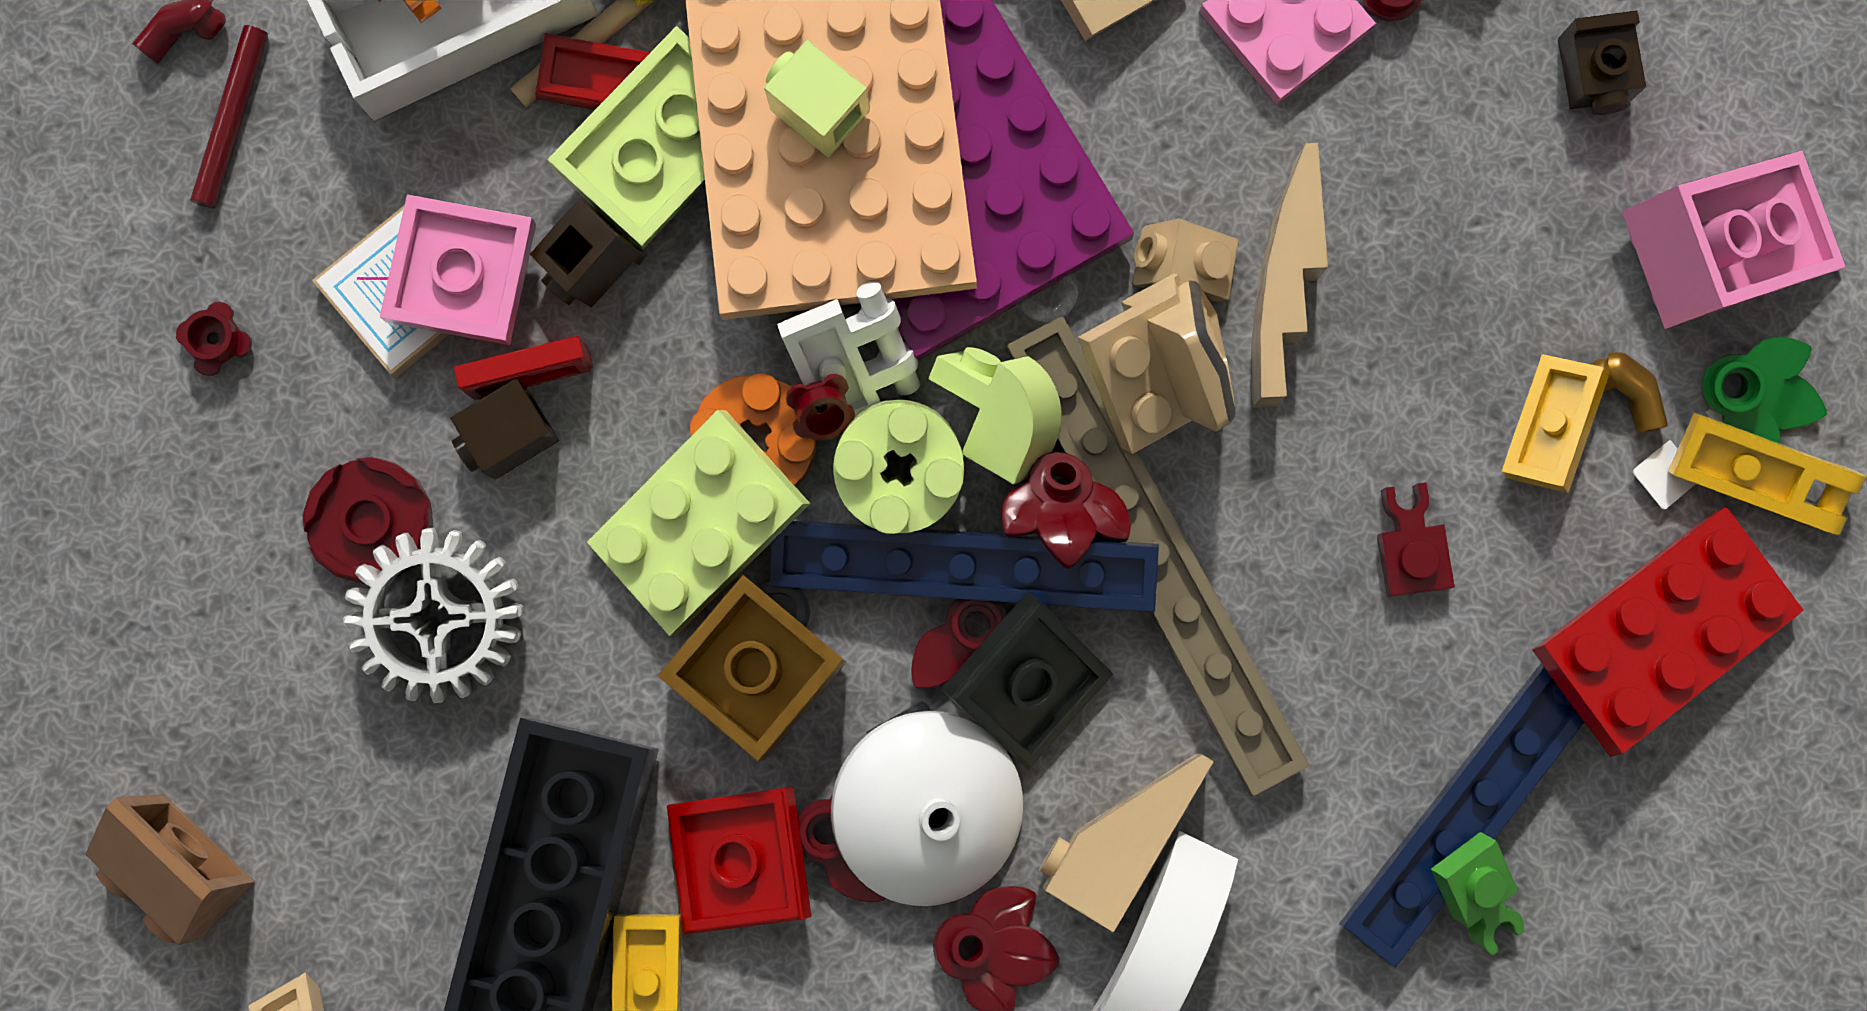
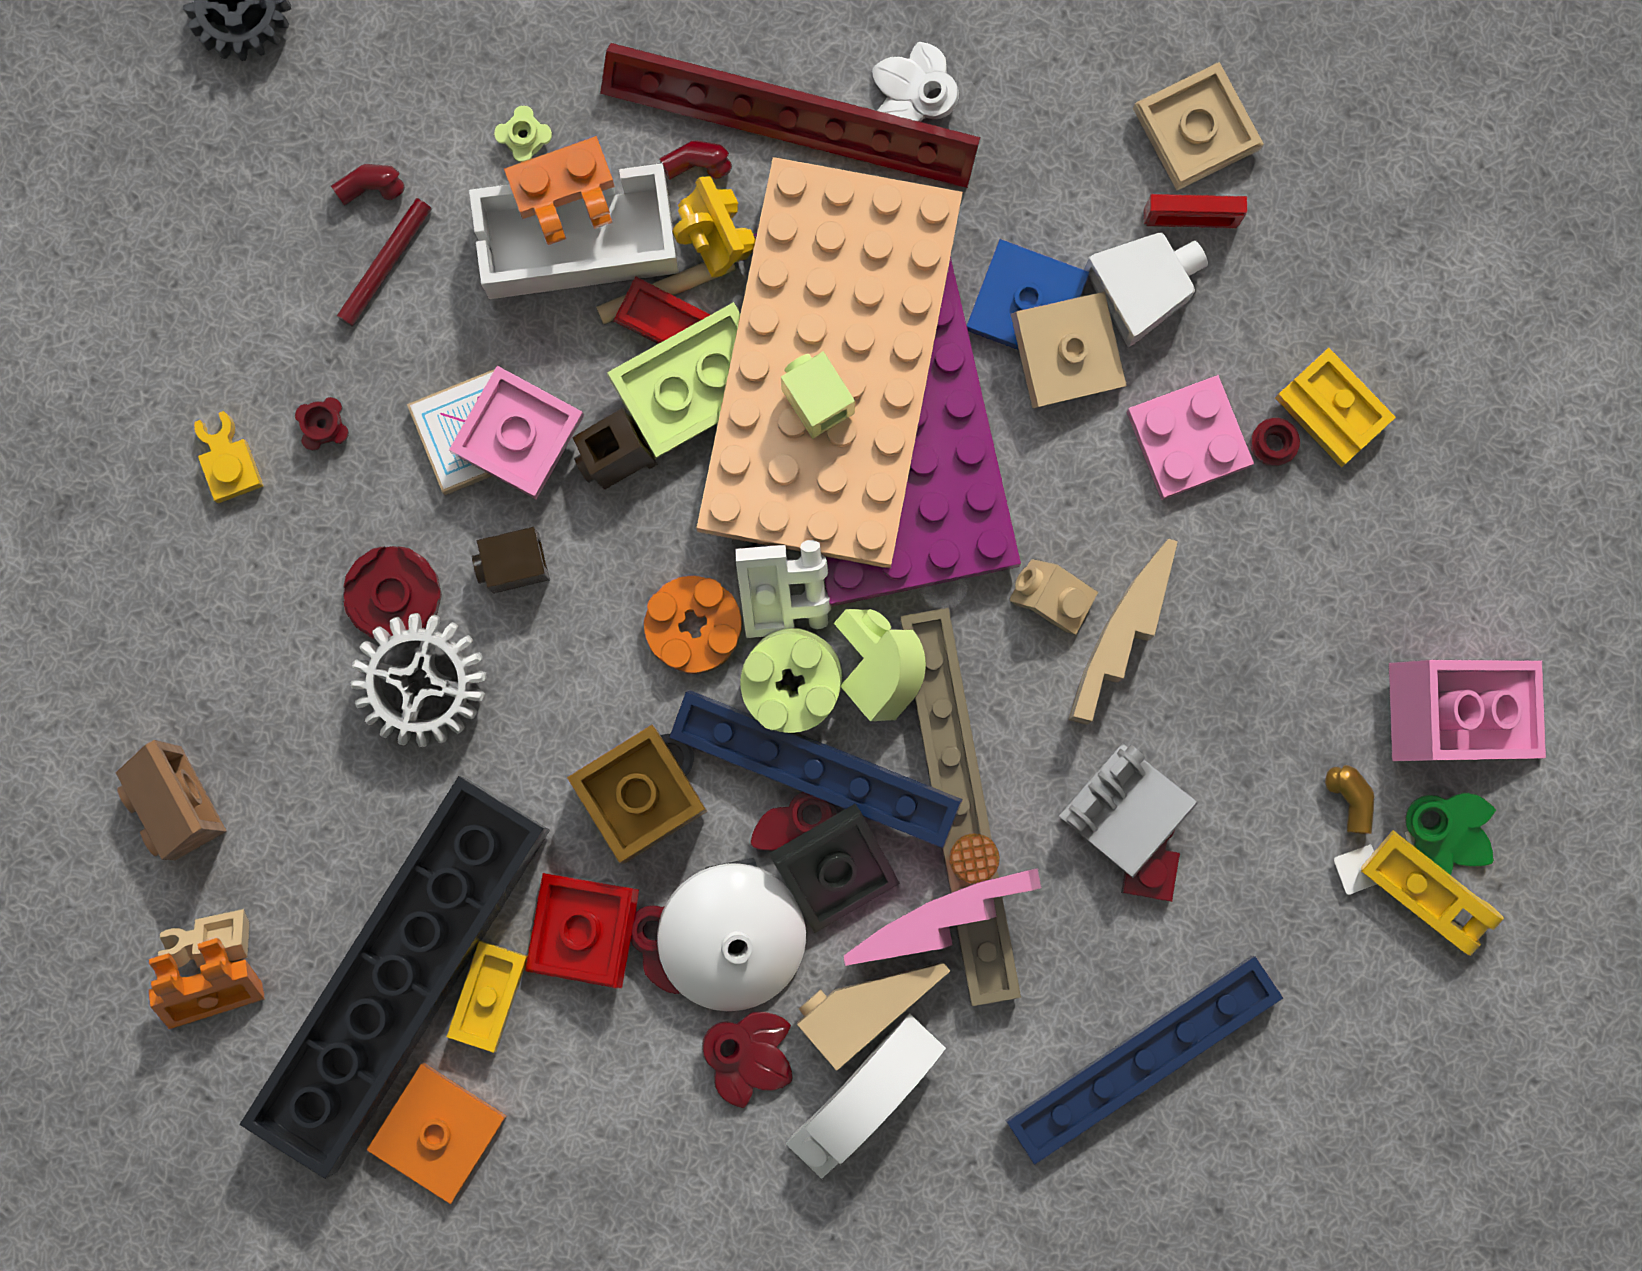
camera: 15 degrees right, 0 degrees up
(112, 426) = (229, 464): none -> yellow plate
(529, 365) = (544, 519): red tile -> none
(698, 522) = (632, 674): yellowish green plate -> none
(825, 421) = (748, 620): dark red plate -> none
(1064, 514) = (902, 756): dark red plate -> none
(1161, 364) = (1008, 667): tan piece -> none
(1168, 714) = (929, 925): none -> bright pink slope
(1196, 612) = (974, 858): none -> tile
(1364, 491) = (1128, 809): none -> light grey hinge
(1475, 887) = (1111, 1126): bright green plate -> none
(1555, 423) = (1286, 804): yellow plate -> none
(1585, 75) = (1397, 558): dark brown brick -> none
(1667, 631) = (1317, 984): red plate -> none

